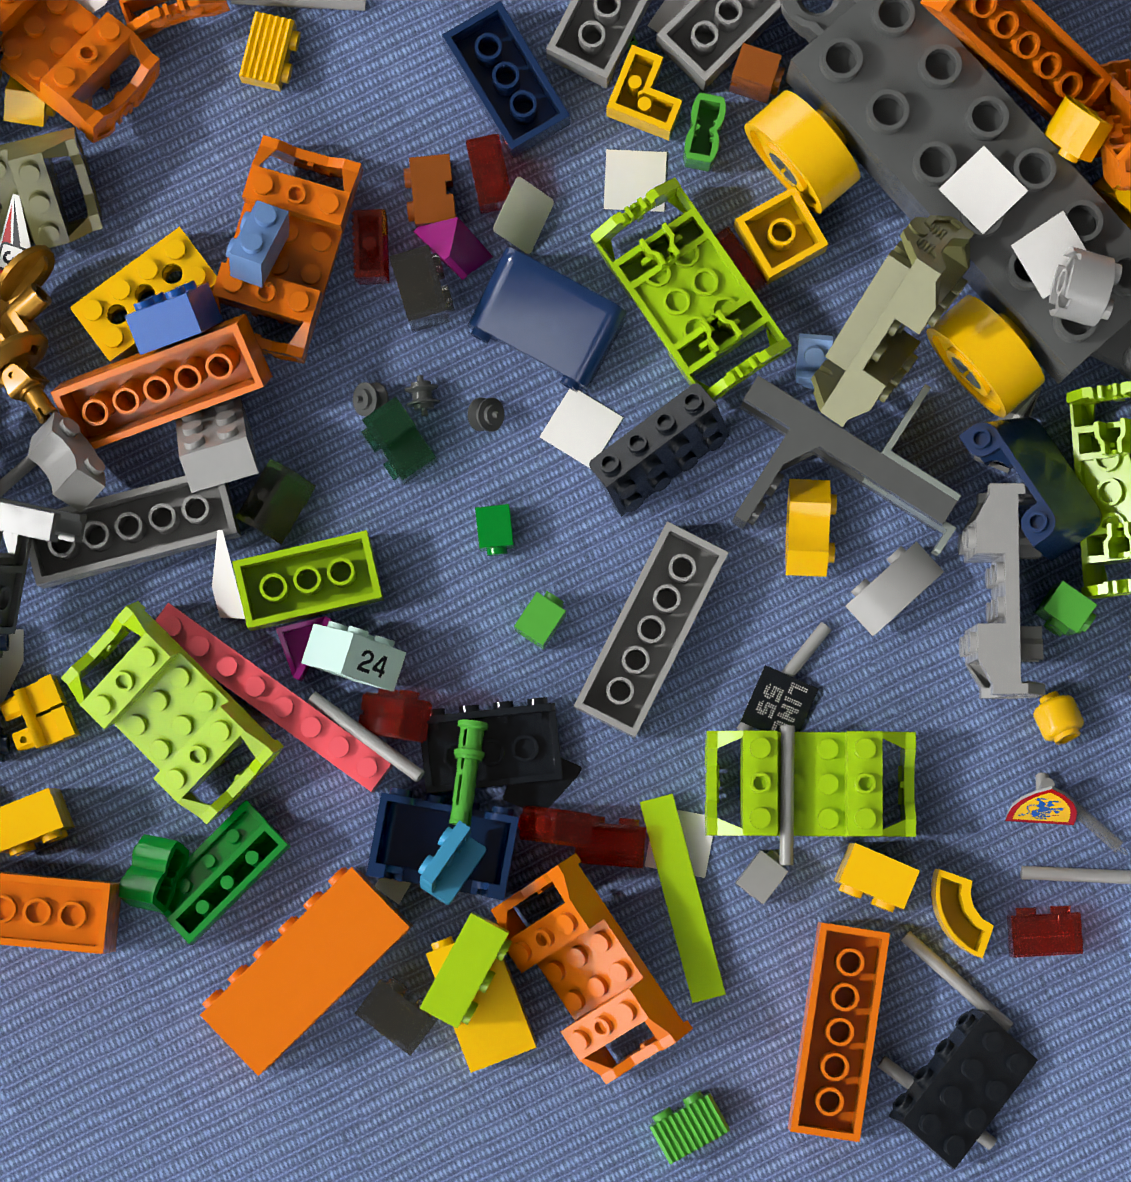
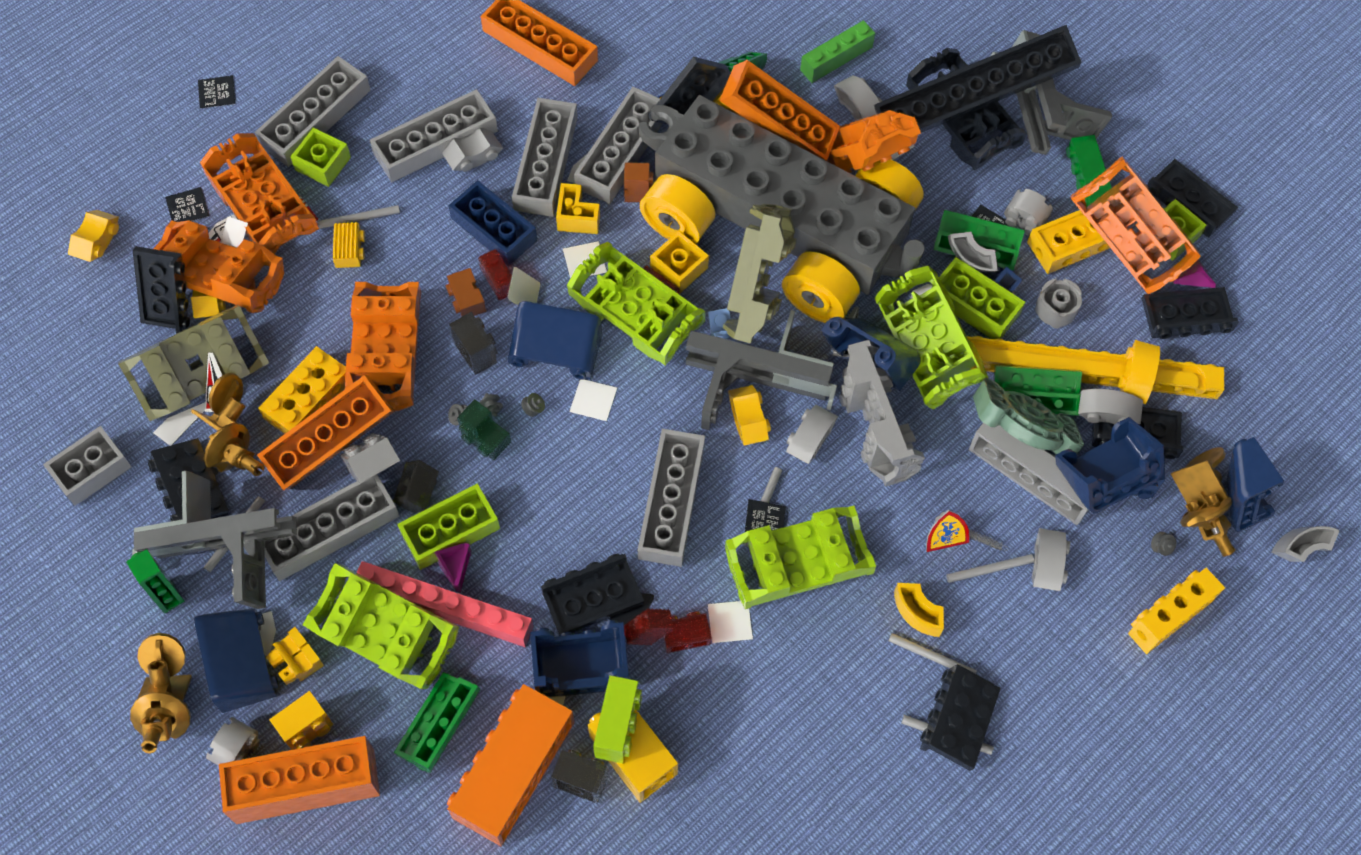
camera: 20 degrees left, 20 degrees down
(68, 461) = (277, 491): light grey brick -> none
(153, 873) = (393, 733): green brick -> none
(173, 316) = (322, 385): brick -> none
(224, 582) = (396, 545): white sticker -> none
(258, 243) = (367, 334): medium blue brick -> none
(354, 655) = (489, 559): light aqua brick -> none
(366, 736) = (511, 606): light grey bar -> none
(370, 246) = (436, 330): clear red brick -> none
(396, 715) = (525, 589): clear red brick -> none
(452, 864) = (587, 666): dark azure bracket -> none
(454, 245) = (488, 313): magenta slope -> none
(468, 755) = (580, 600): bright green pin -> none
(494, 529) = (557, 467): green brick -> none
(541, 619) = (601, 508): bright green brick -> none
(591, 971) = (699, 708): orange piece -> none
(660, 449) = (645, 391): black bracket -> none
(682, 898) = (743, 654): lime tile -> none
(688, 1126) = (793, 795): bright green brick -> none
(703, 137) = (617, 220): bright green brick -> none
(762, 875) = (788, 624): light grey brick -> none
(787, 795) = (788, 565): light grey bar -> none
(838, 1031) = (869, 704): orange brick -> none
(875, 876) = (859, 601): yellow brick -> none
(983, 190) = (788, 185): white sticker -> none
(1044, 250) = (840, 207): white sticker -> none
(1044, 933) = (975, 608): clear red brick -> none
(1058, 718) = (937, 480): yellow head -> none
(1066, 610) = (920, 414): bright green brick -> none
(1077, 130) = (831, 144): yellow brick -> none
(1084, 287) = (865, 213): light grey brick -> none

